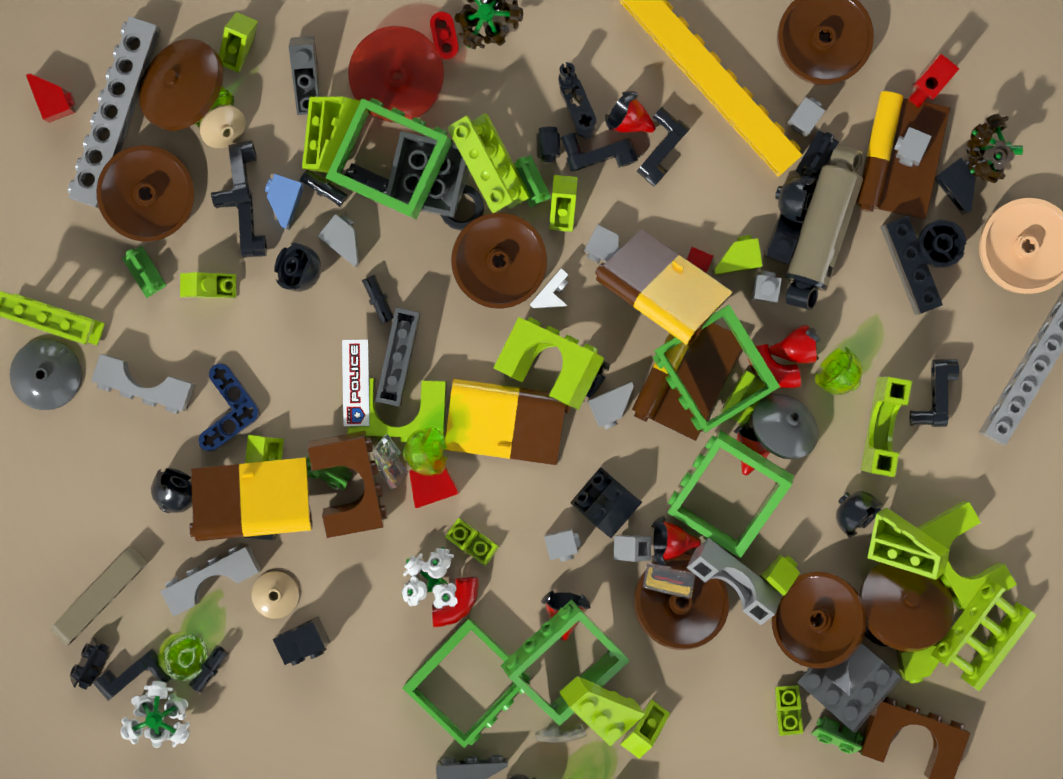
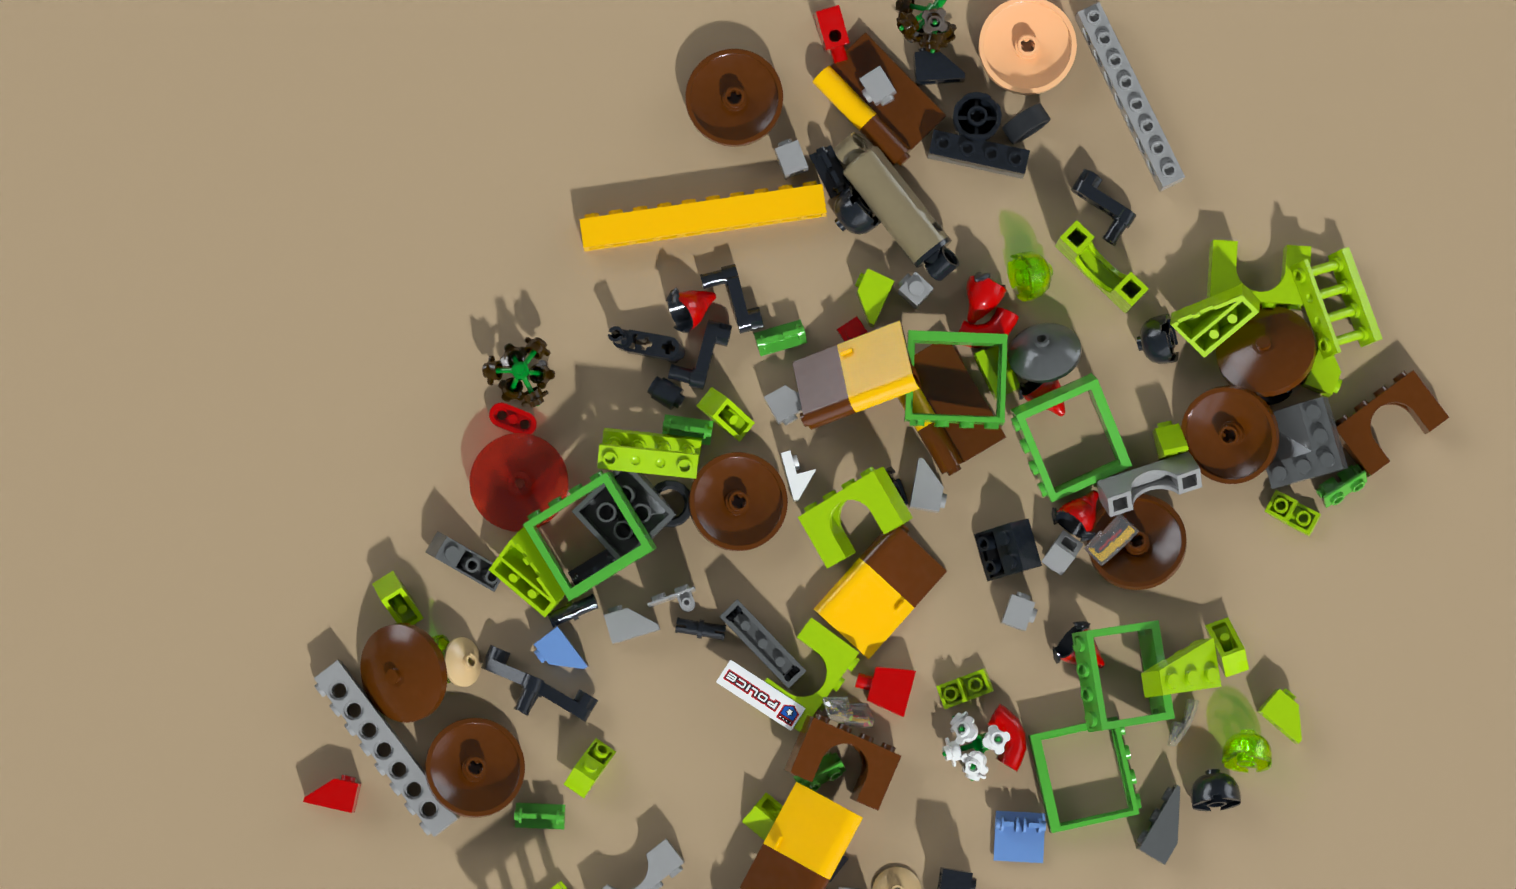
camera: 50 degrees left, 5 degrees down
(236, 405) = (709, 814): dark blue beam -> none
(297, 267) = (627, 678): black cylinder -> none
(383, 663) = (1019, 836): none -> medium blue hinge
(393, 268) = (682, 593): none -> light grey hinge
(425, 451) = (860, 674): clear neon green cylinder -> none
(654, 206) = (780, 337): none -> bright green hinge
(783, 240) = (883, 248): black slope -> none
(963, 287) = (1026, 123): none -> black tyre

